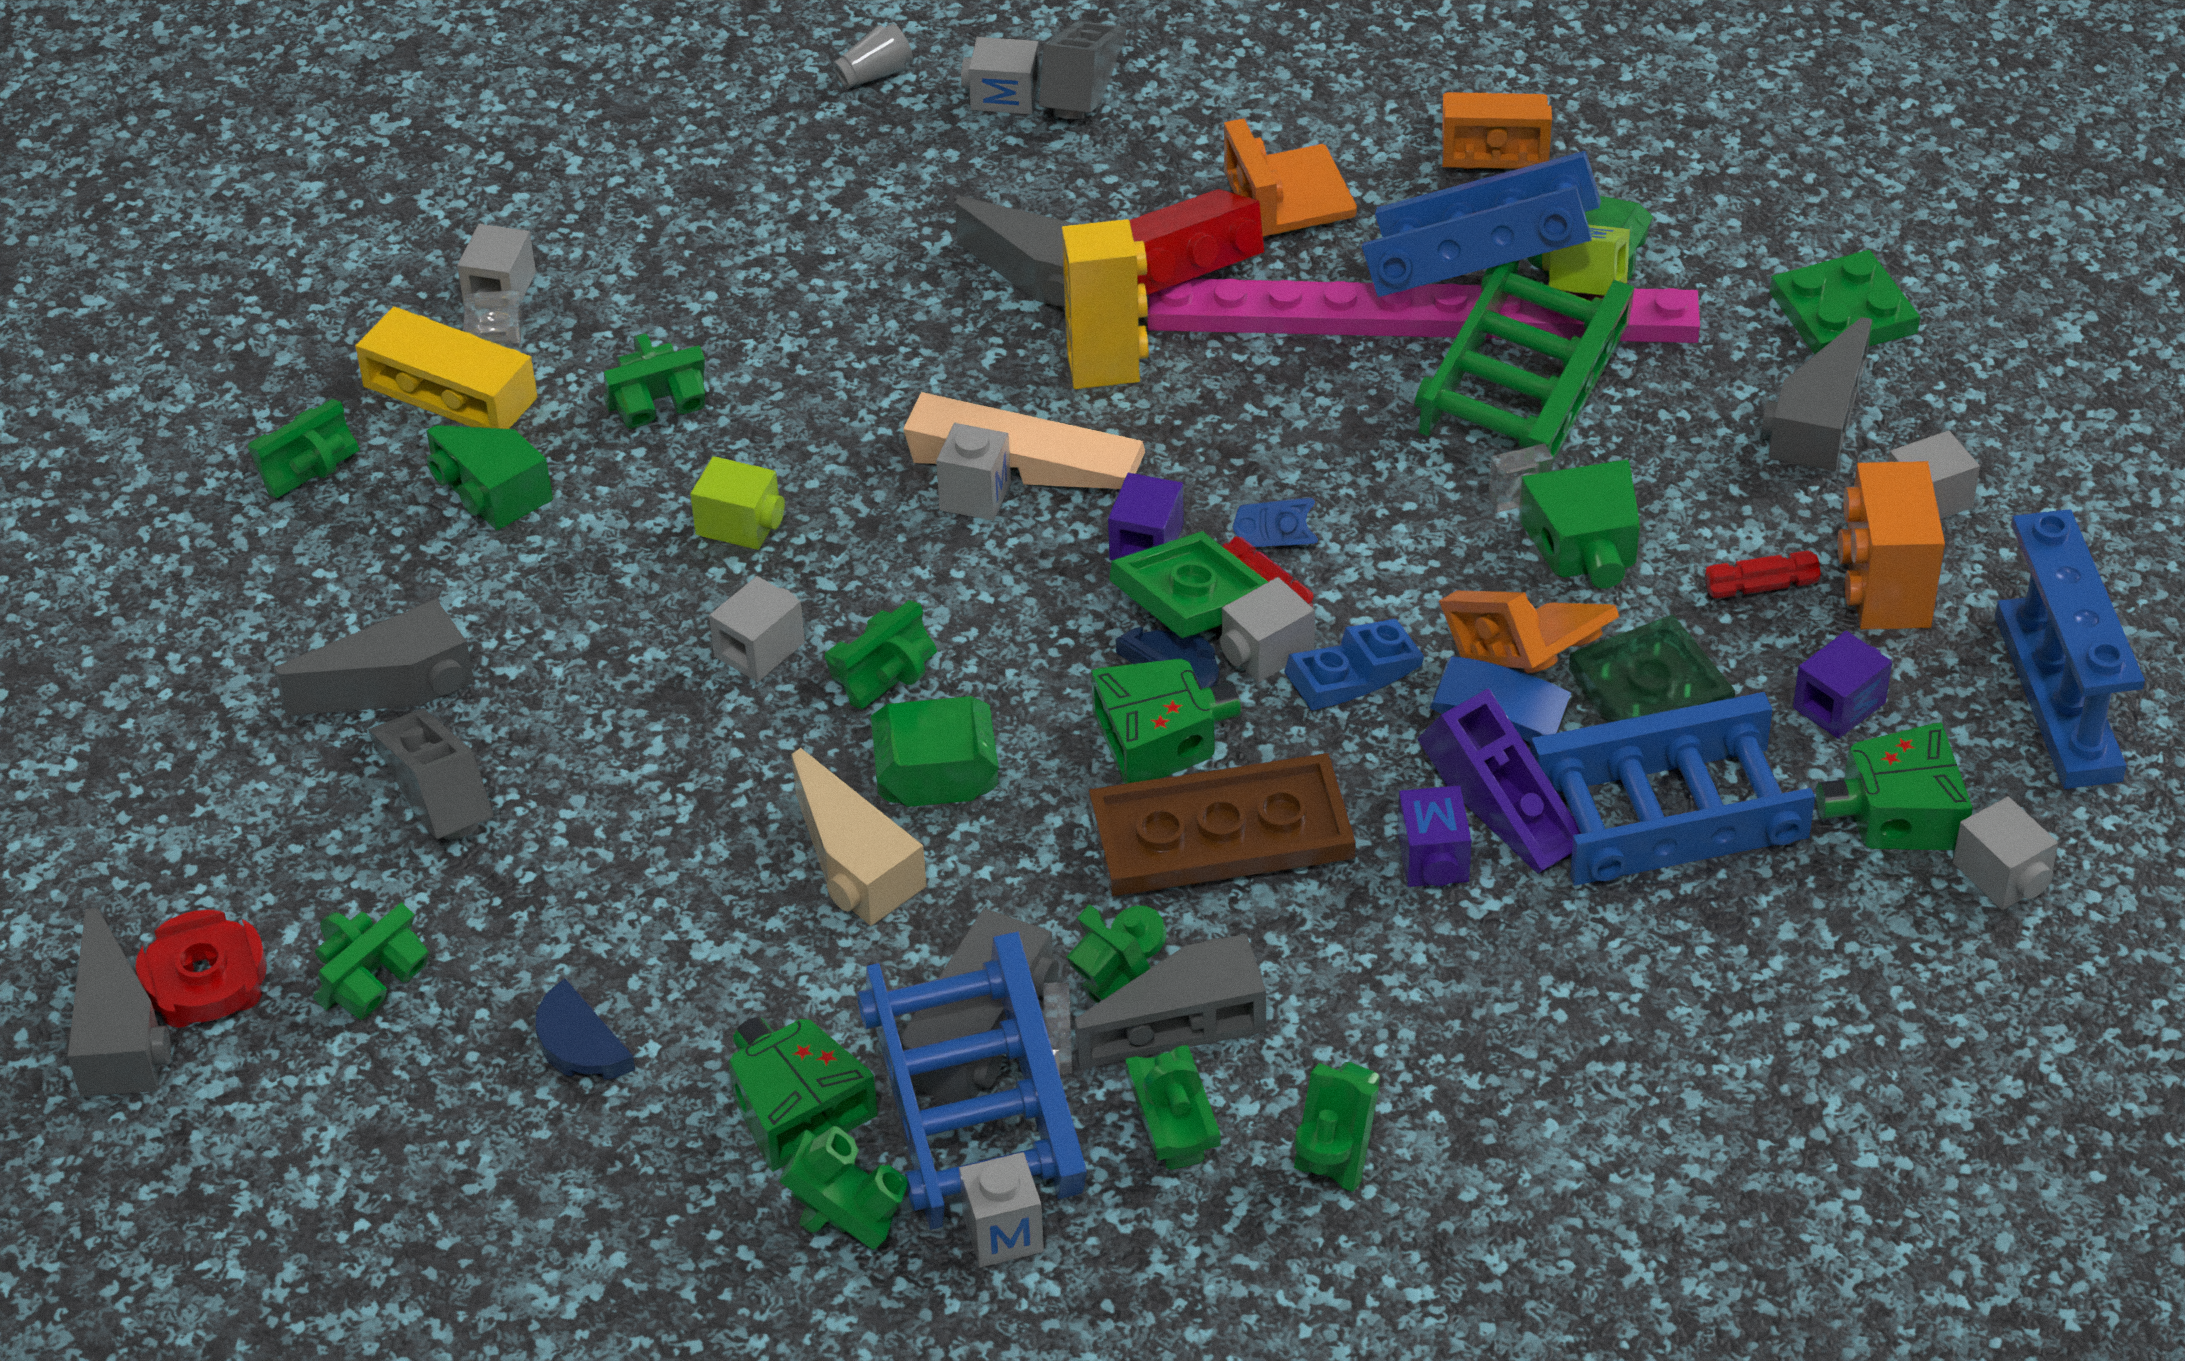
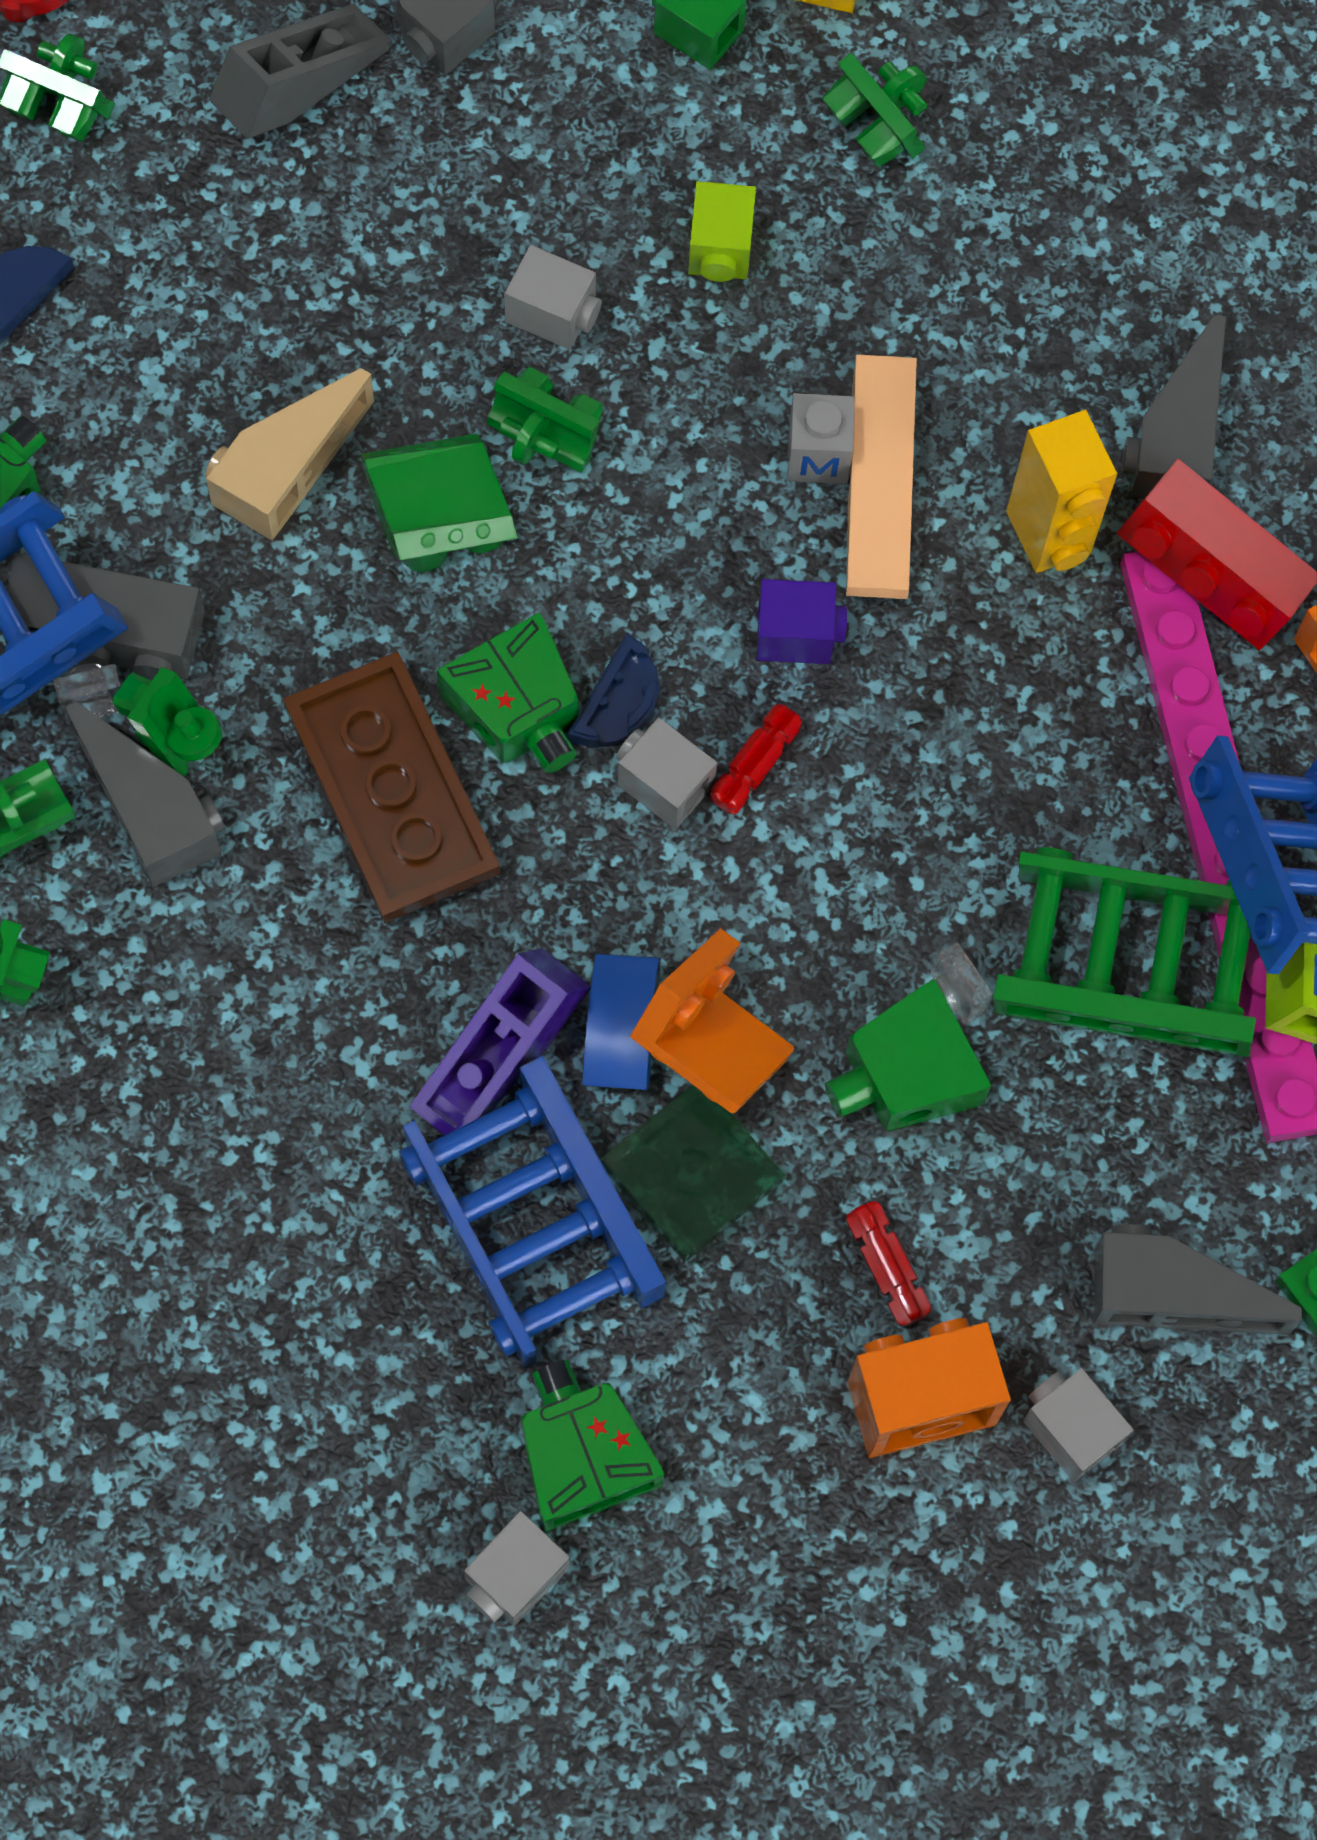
camera: 70 degrees right, 25 degrees up
(1185, 582) = (709, 682): green plate -> none
(1275, 522) = (833, 751): blue piece -> none
(1363, 662) = (651, 870): blue slope -> none
(1434, 836) = (410, 990): dark purple brick -> none
(1842, 684) = (730, 1369): dark purple brick -> none
(2068, 649) = (799, 1594): blue fence -> none

